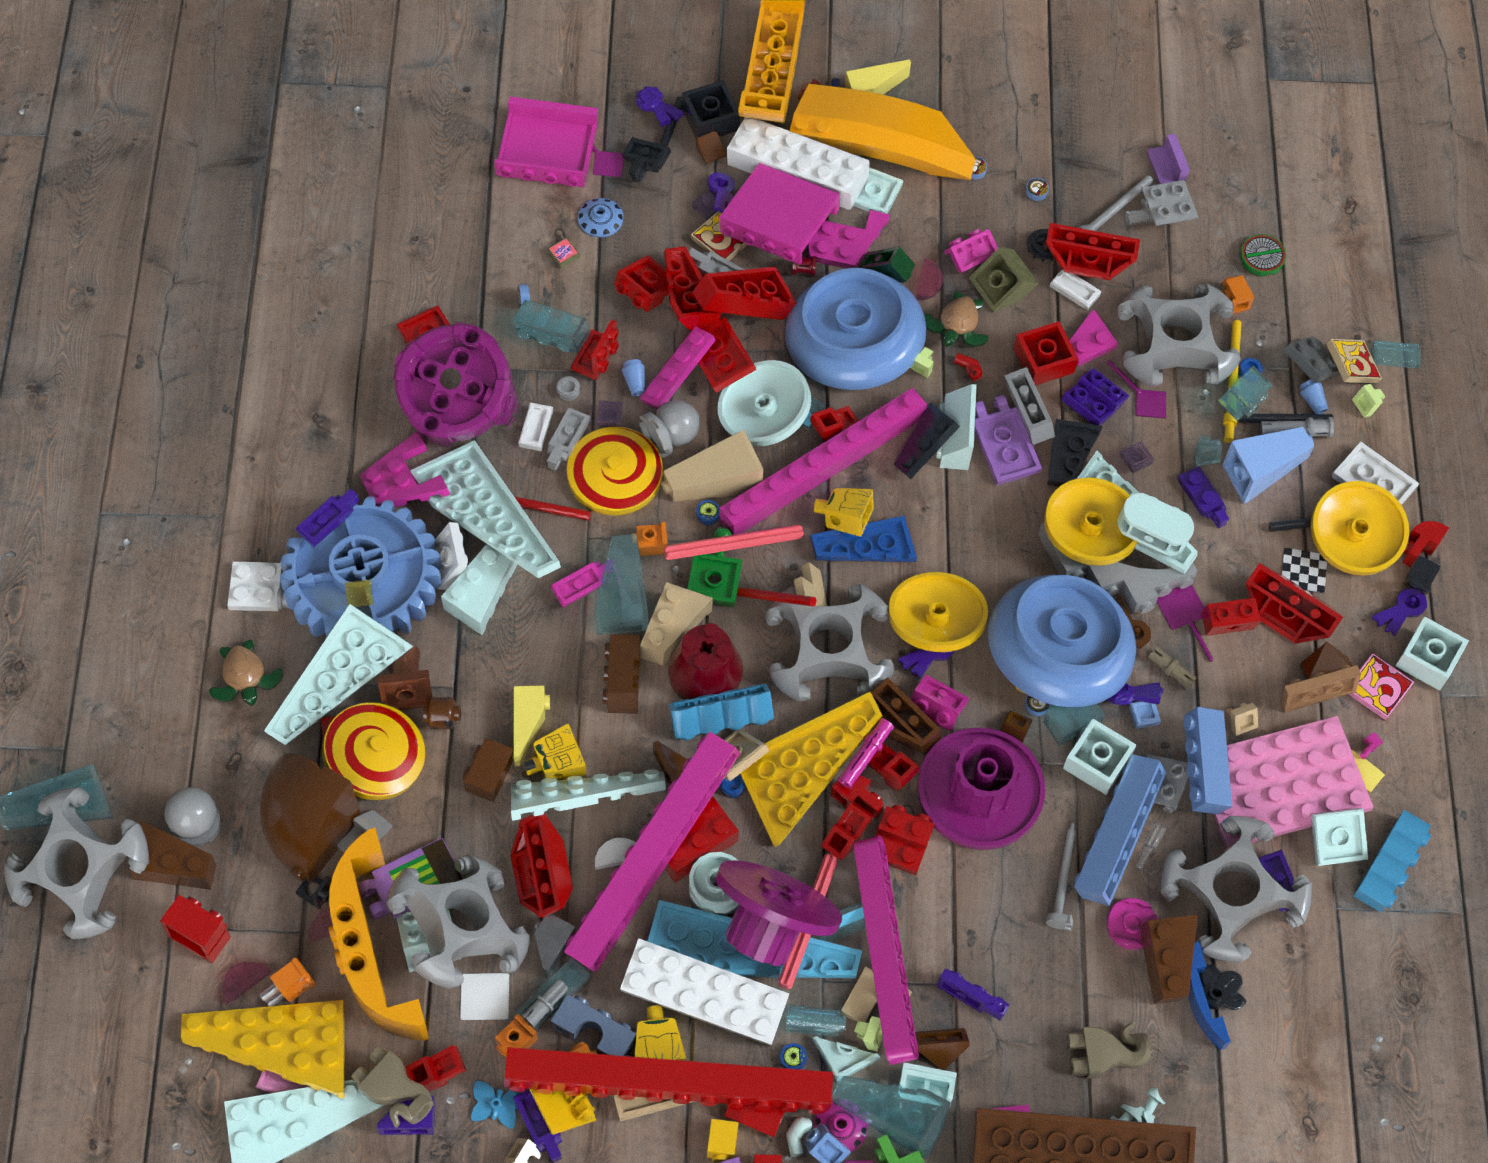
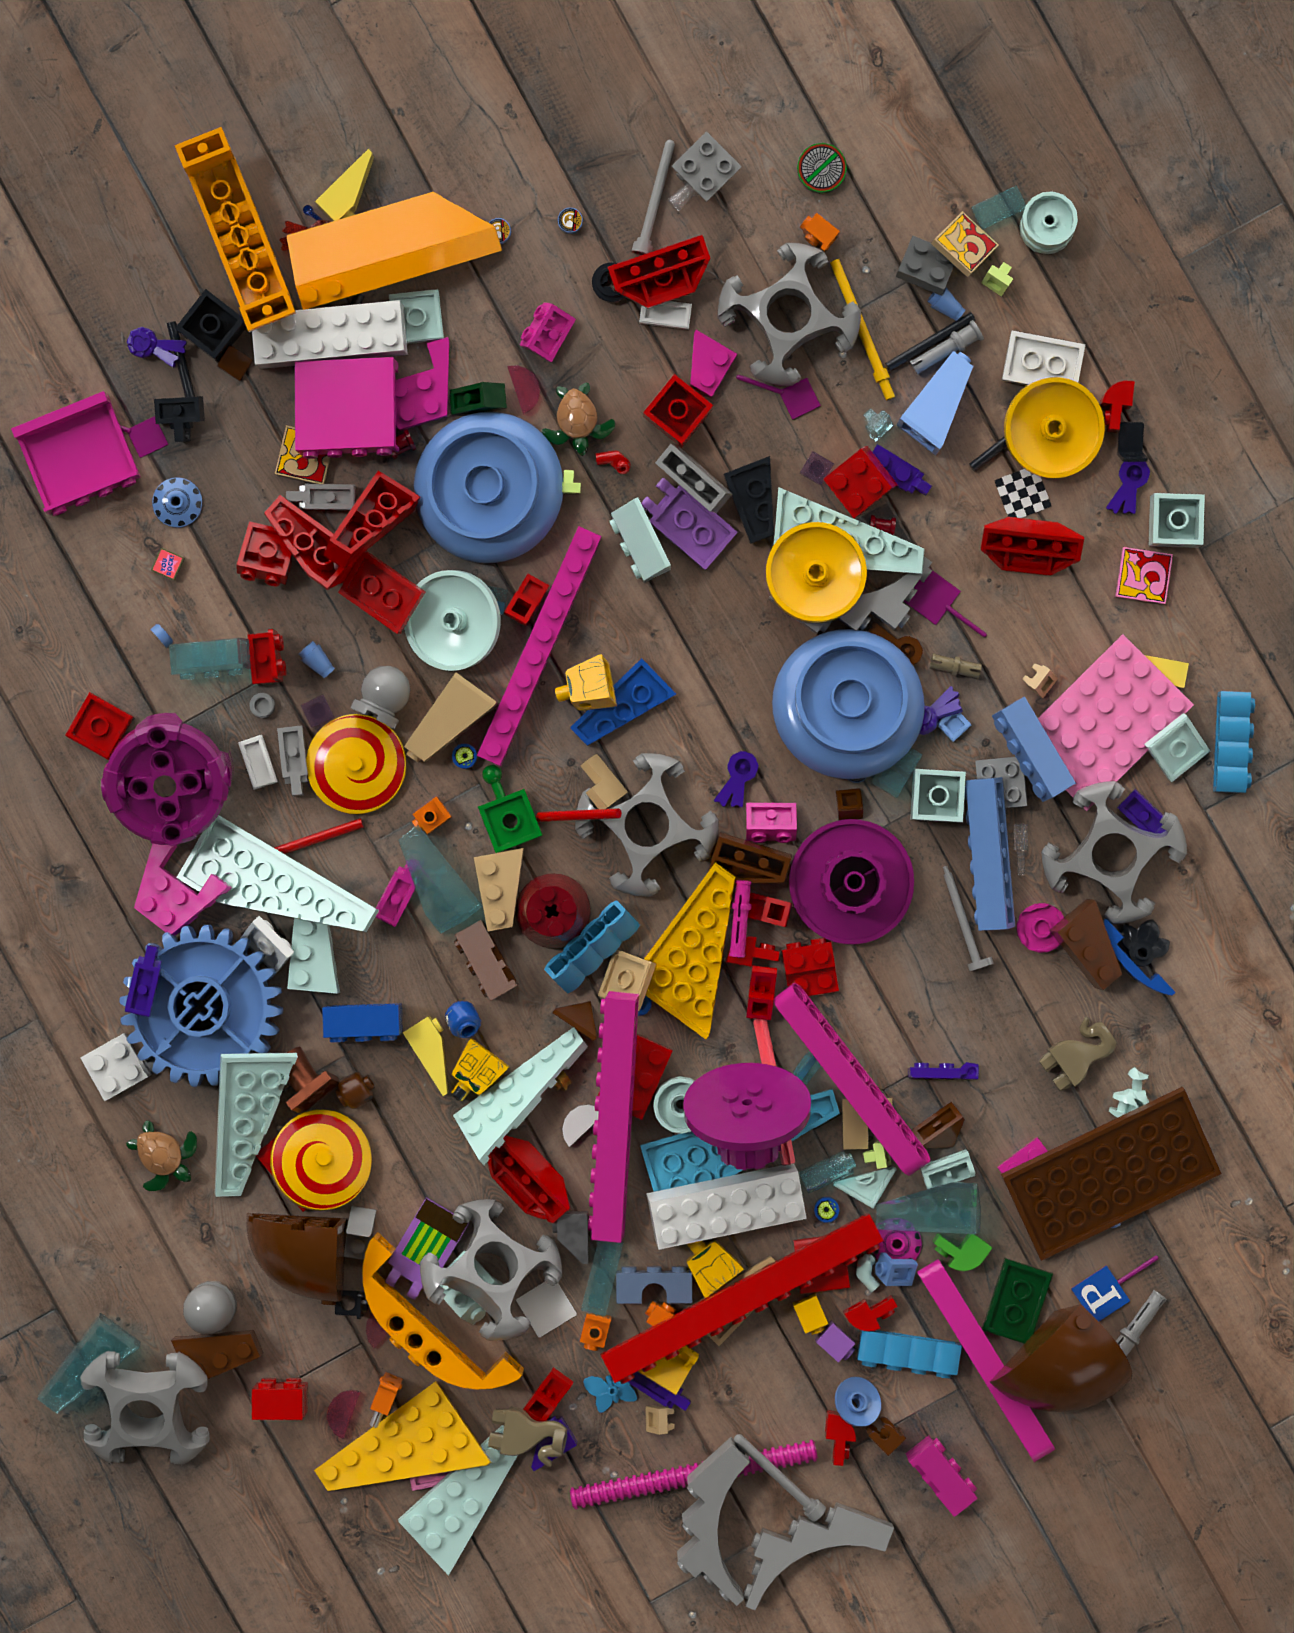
camera: 20 degrees left, 25 degrees up
(359, 593) = (220, 1037): clear yellow tile -> none
(486, 658) = (362, 1022): none -> blue brick
(488, 769) = (427, 1116): reddish brown brick -> none
(544, 1003) = (602, 1291): light grey axle -> none
(572, 707) = (463, 1019): none -> blue head
(623, 806) = (562, 1081): none -> pearl gold plate
(677, 368) = (351, 629): dark pink plate -> none
(705, 204) = (270, 428): clear purple plate -> none
(723, 187) = (270, 400): dark purple piece -> none
(733, 542) = (507, 778): coral axle -> none
(926, 439) = (619, 571): black wing -> none
(938, 612) = (725, 739): yellow dish -> none
(1003, 279) = (594, 347): olive slope -> none
(1095, 397) = (746, 425): dark purple slope -> none
(1155, 524) = (874, 548): light aqua brick -> none
(1169, 161) = (678, 114): medium lavender panel -> none
(1170, 478) = (860, 481): none -> red brick
(1230, 616) = (982, 587): red brick -> none
(1245, 393) = (885, 337): clear light blue piece -> none
(1247, 364) = (872, 307): blue tile -> none
(1320, 688) = (1095, 618): medium nougat plate -> none
(1324, 659) = (1090, 583): reddish brown slope -> none
(1372, 743) = (1163, 635): dark pink hand -> none
(1433, 380) = (1045, 237): none -> light aqua wheel

